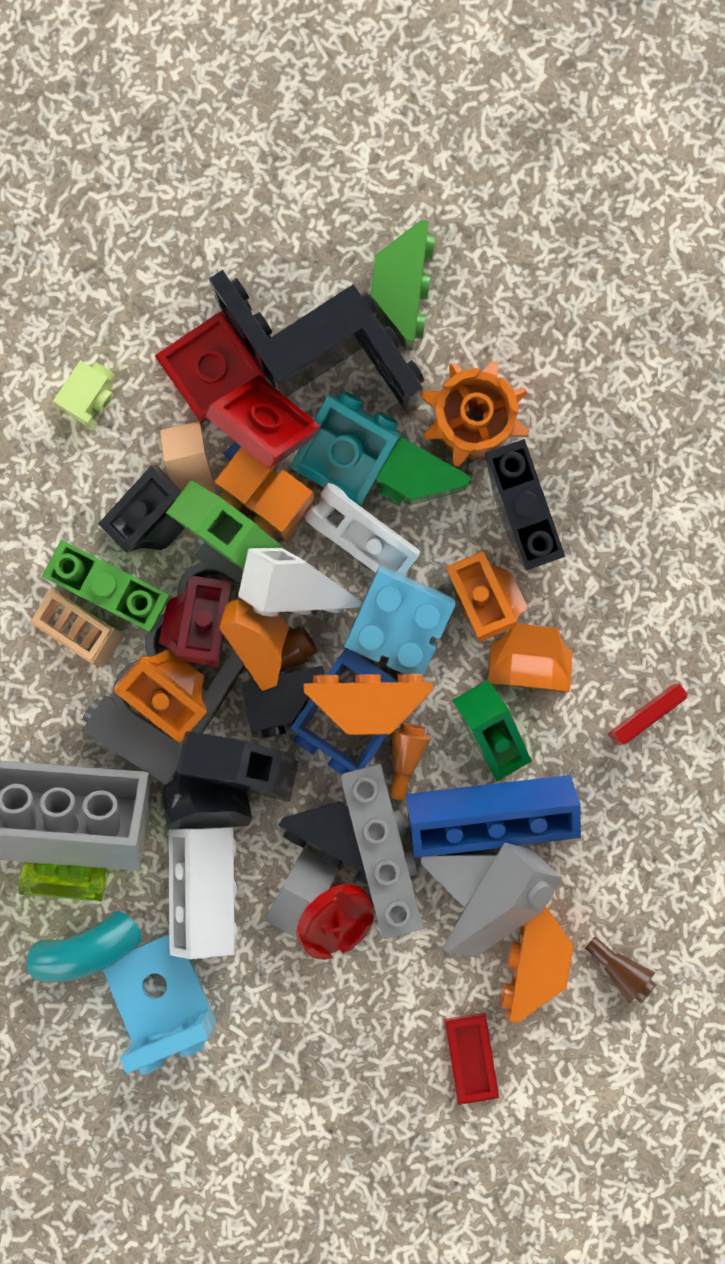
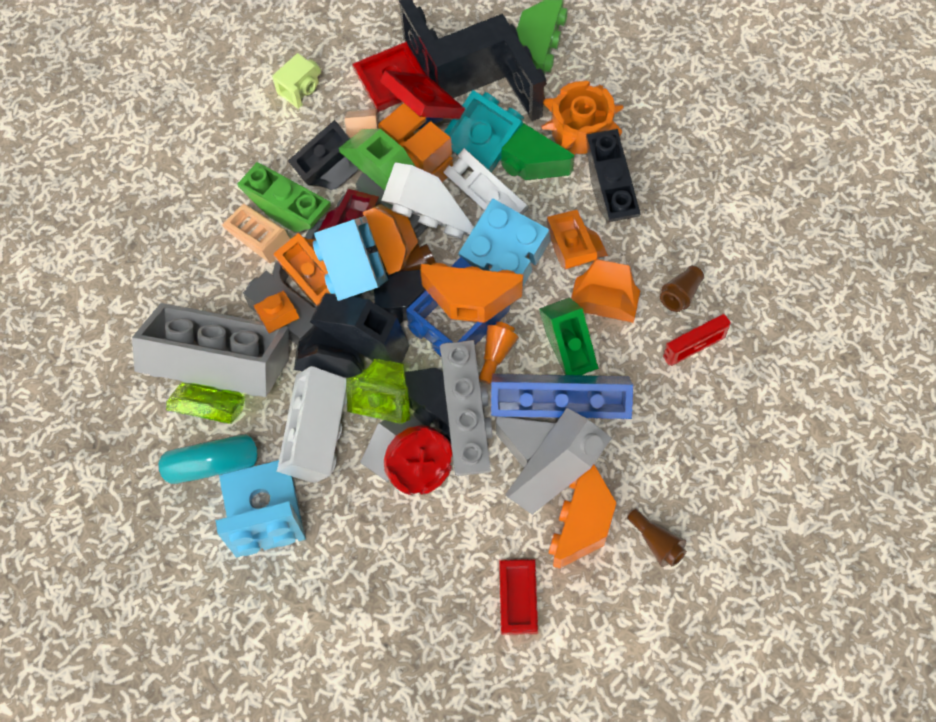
camera: 15 degrees right, 20 degrees down
(130, 759) = (276, 311): none -> orange plate
(218, 709) = (346, 258): none -> medium azure piece
(276, 843) = (379, 392): none -> clear neon green slope
(624, 644) = (680, 291): none -> reddish brown cone

